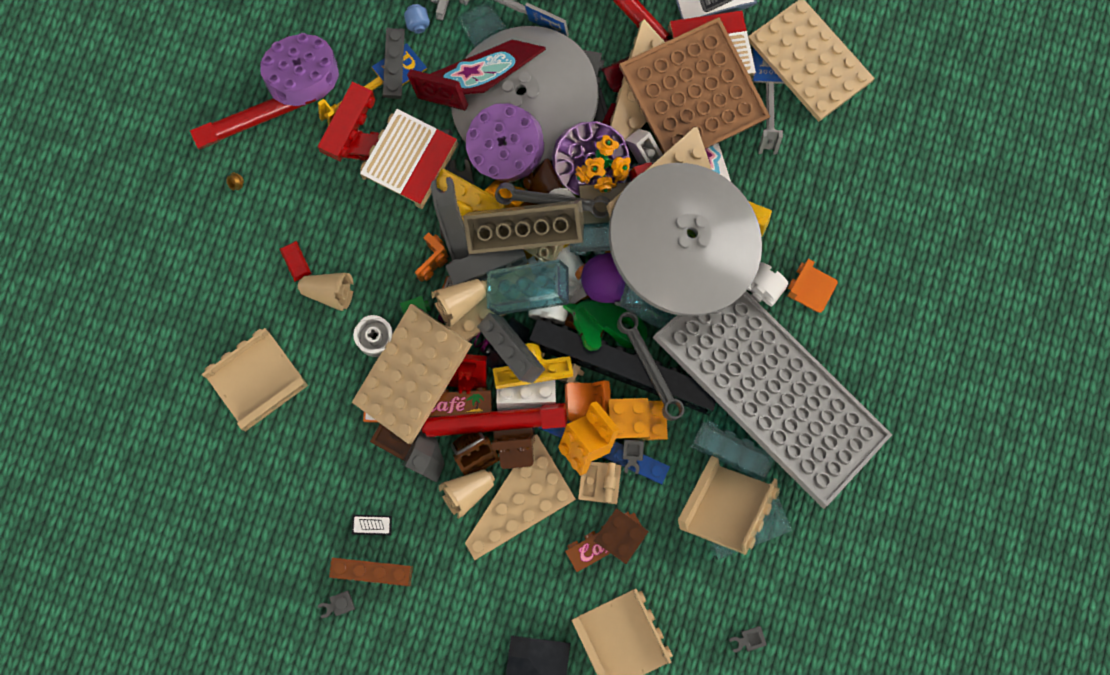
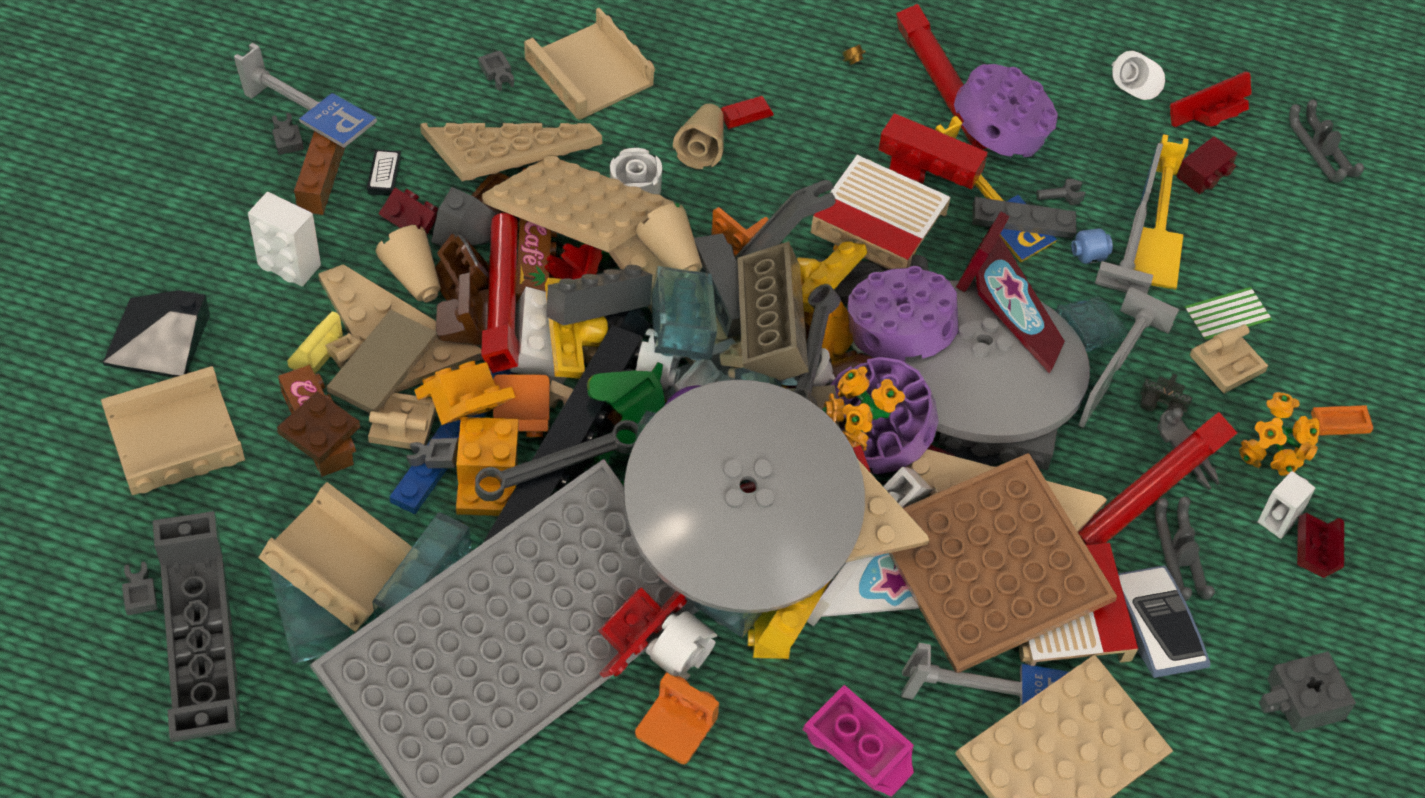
camera: 85 degrees right, 25 degrees down
(261, 450) = (496, 67): none -> dark grey plate
(335, 568) = (330, 117): none -> piece
(348, 441) = (481, 150): none -> tan wing
(363, 37) = (1064, 192): none -> dark grey bar
(413, 499) = (405, 210): none -> dark red bracket
(460, 584) = (284, 239): none -> white brick
(541, 552) = (313, 349): none -> light yellow tile
(545, 530) = (343, 349): none -> tan tile
(559, 500) = (382, 362): none -> dark tan tile
(762, 314) = (633, 625): none -> red bracket
(798, 588) = (197, 628): none -> dark grey slope
(815, 177) = (862, 741): none -> dark pink slope

